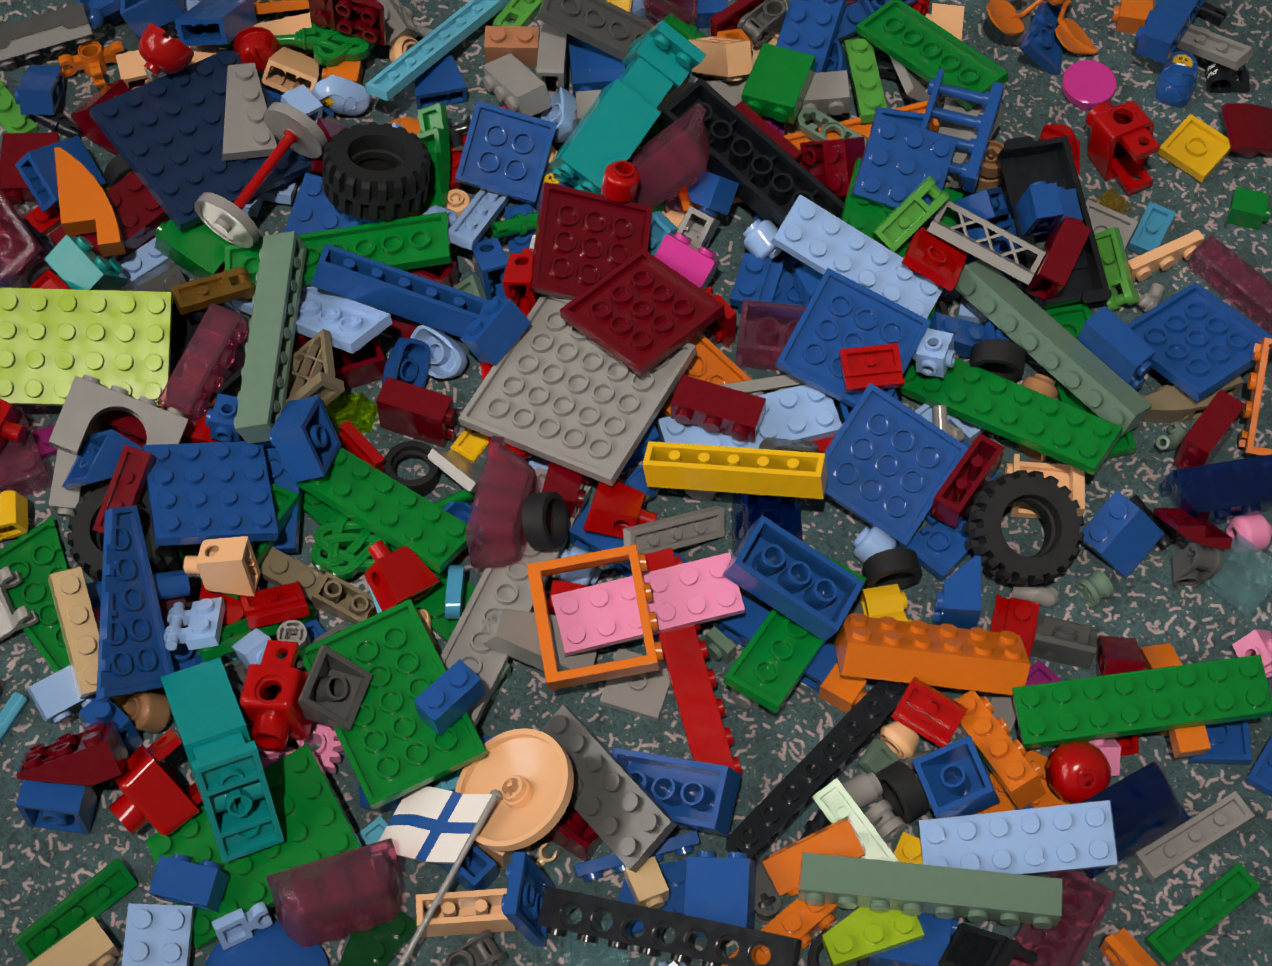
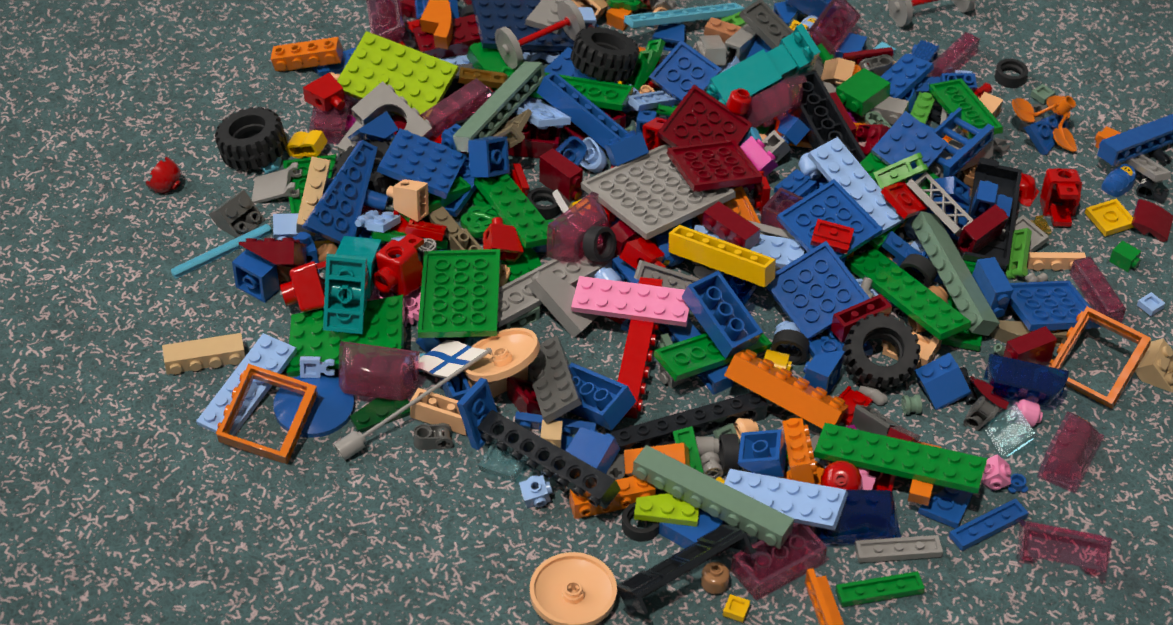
camera: 25 degrees right, 15 degrees down
(77, 908) = (247, 327): green plate -> none
(83, 268) = (418, 38): teal brick -> none
(126, 482) = (384, 136): dark red plate -> none
(189, 883) = (300, 335): blue brick -> none
(333, 690) = (429, 269): dark grey slope -> none
(342, 95) = (610, 19): light blue piece -> none
(352, 407) = (529, 163): clear neon green brick -> none
(449, 697) = (490, 295): blue brick -> none
(454, 591) = (530, 261): dark azure beam -> none
(543, 856) = (504, 403): tan hand -> none
(561, 679) = (589, 319): orange window -> none
(638, 693) = (605, 349): light grey plate -> none
(842, 690) = (724, 390): orange brick -> none
(929, 712) = (767, 415): red plate -> none
(935, 353) = (878, 249): light blue brick -> none
(1088, 84) = (1061, 160): dark pink tile -> none
(1151, 228) = (1060, 243): dark azure plate -> none

